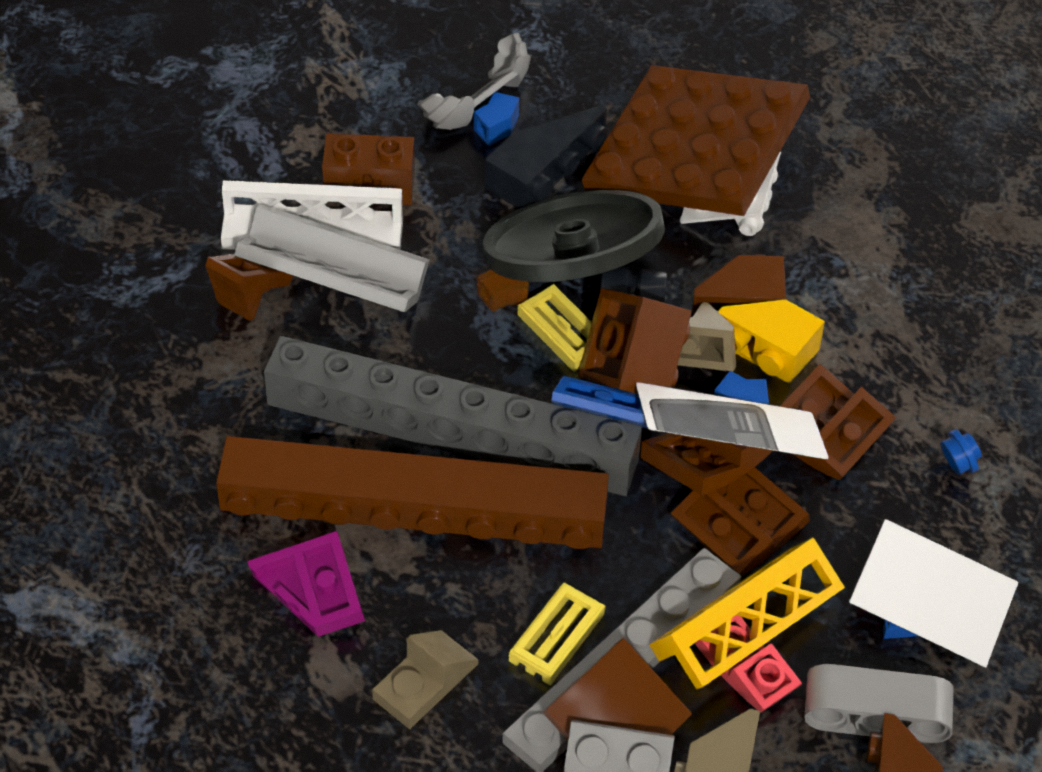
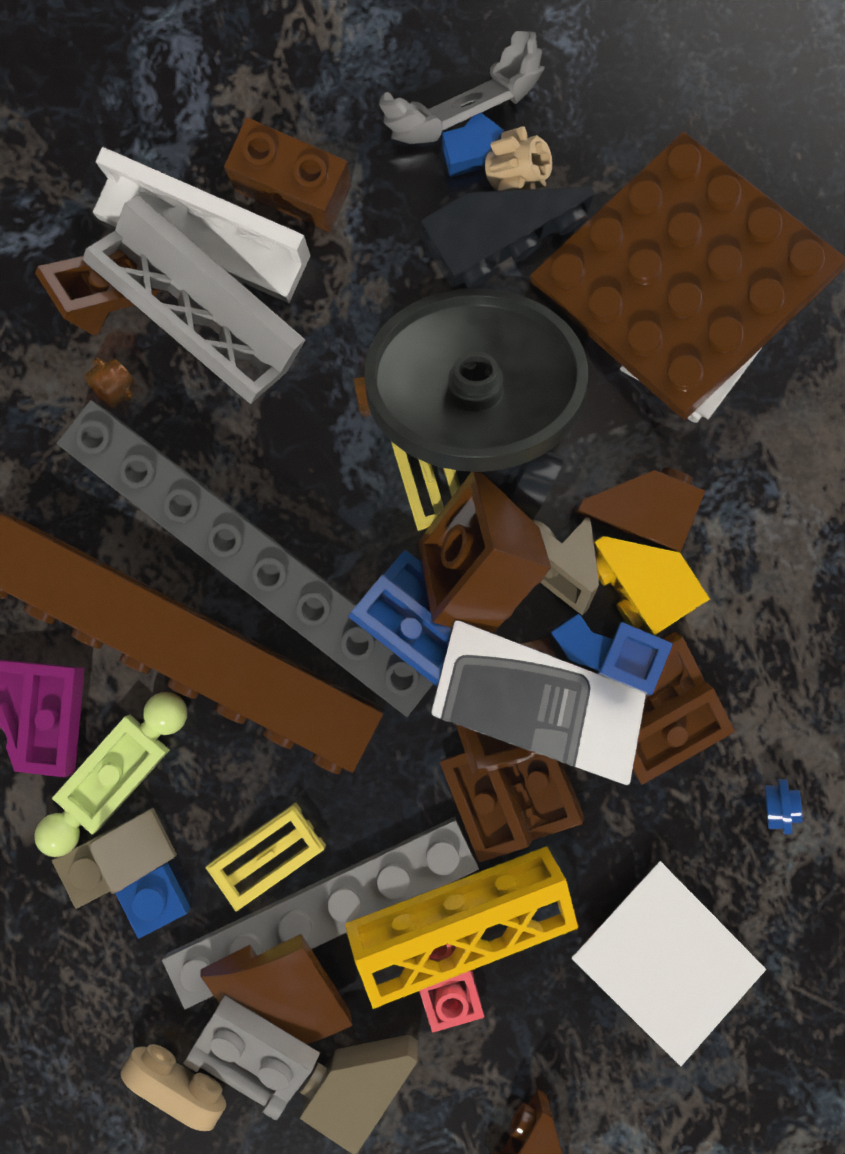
camera: 25 degrees right, 35 degrees up
(271, 334) = (110, 381): none -> clear orange plate
(396, 608) = (110, 774): none -> yellowish green plate
(473, 697) = (153, 901): none -> blue plate
(538, 108) = (518, 161): none -> tan gear
(788, 378) = (635, 658): none -> blue plate
(857, 697) = (551, 1073): light grey beam -> none

